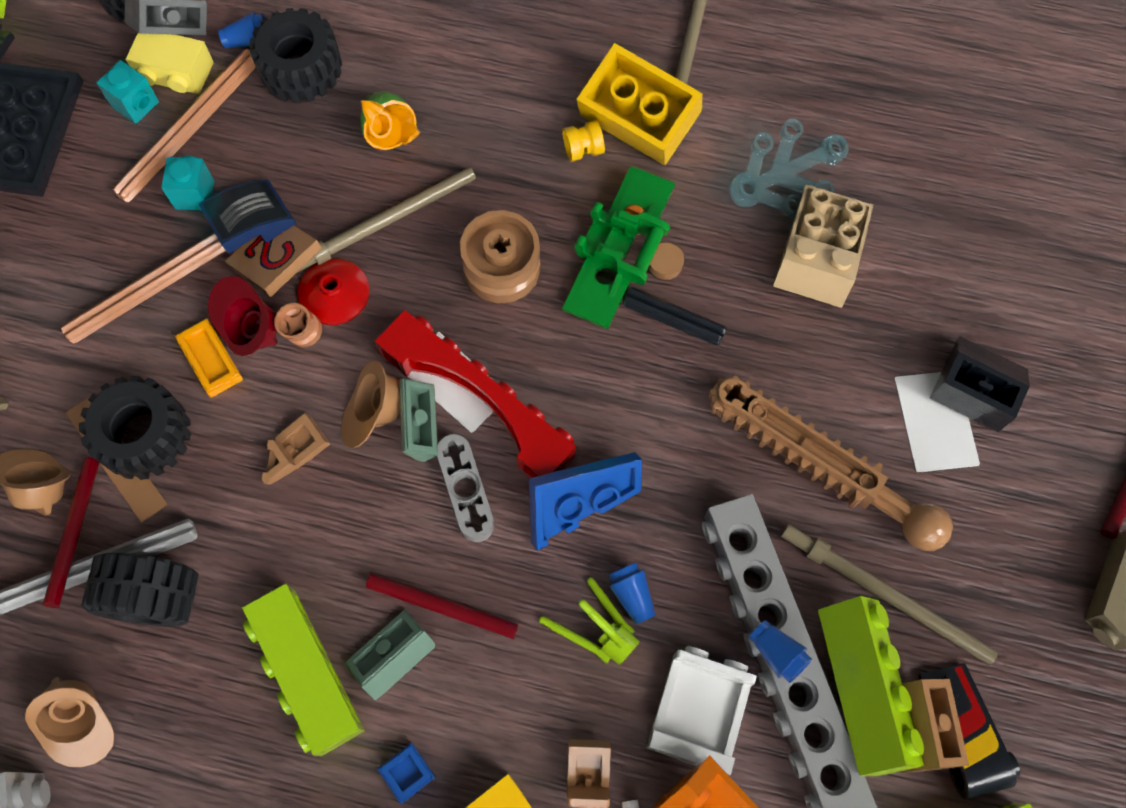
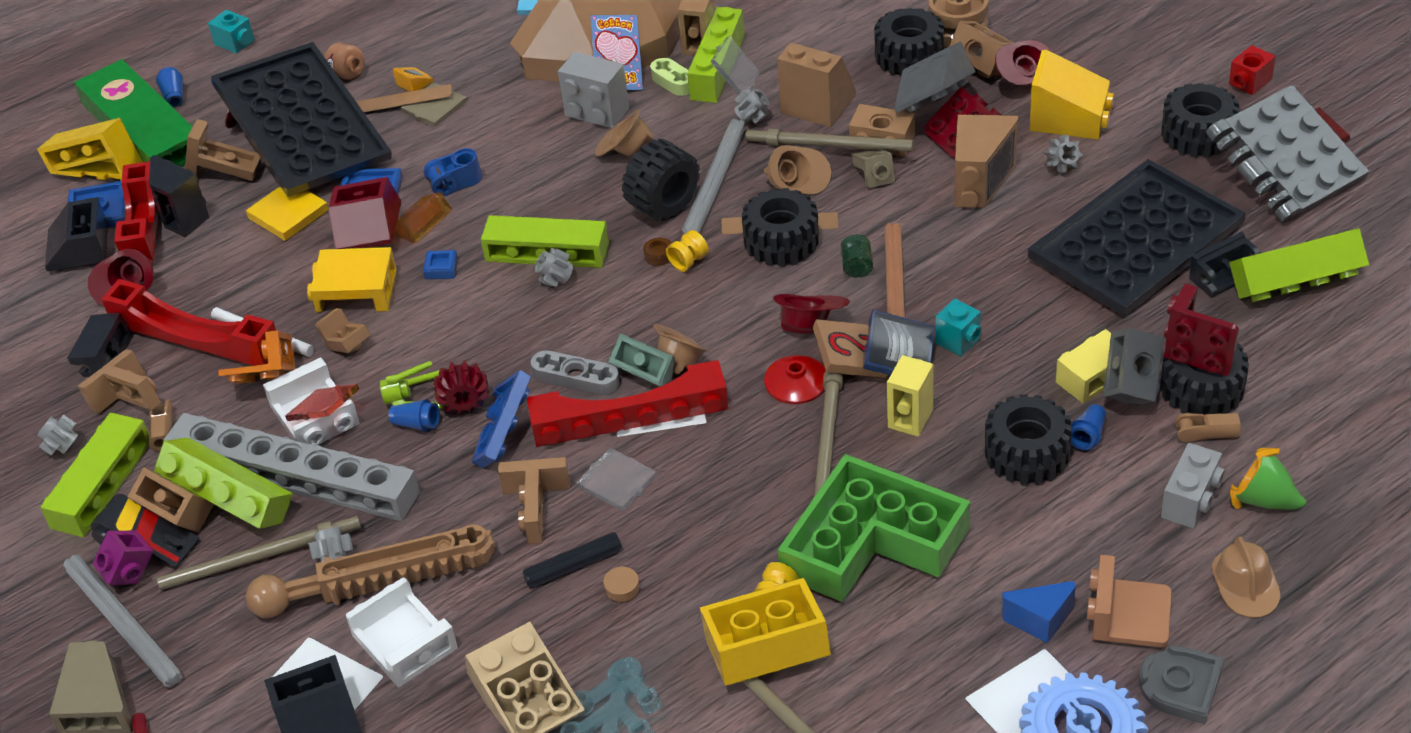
camera: 135 degrees right, 25 degrees down
(71, 533) = (729, 169): dark red bar -> none
(128, 91) = (1077, 324): teal brick -> none
(137, 332) = (856, 256): none -> clear green wheel
(184, 127) = (1019, 347): nougat axle -> none
(209, 358) = (806, 285): light orange tile -> none
(223, 502) = (689, 249): none -> yellow wheel
(237, 543) = (655, 251): none -> reddish brown tile
(291, 320) = (778, 339): nougat wheel -> none
(294, 448) = (694, 302): medium nougat slope -> none
(309, 155) = (910, 395): none -> light yellow brick
(341, 620) = (553, 267): none -> light grey gear
(387, 121) = (921, 463): light orange hat -> none
(389, 655) = (514, 288): sand green slope -> none
(442, 606) = (513, 325): dark red bar -> none
(478, 120) = (869, 512): none -> bright green brick
(500, 256) = (719, 470): medium nougat wheel -> none
(560, 354) = (616, 479): none -> clear piece
(576, 561) = (461, 387): none -> dark red gear
(609, 240) = (672, 556): green piece -> none
(640, 397) = (530, 480): none -> medium nougat bracket
(699, 688) = (322, 402): none -> clear red piece
(780, 651) = (290, 439): blue cone -> none
(836, 520) = (330, 543): none -> light grey gear
(856, 384) = (400, 632): none -> white panel
(1010, 693) = (122, 557): none -> magenta brick
(1054, 656) = (123, 621): none -> light grey axle

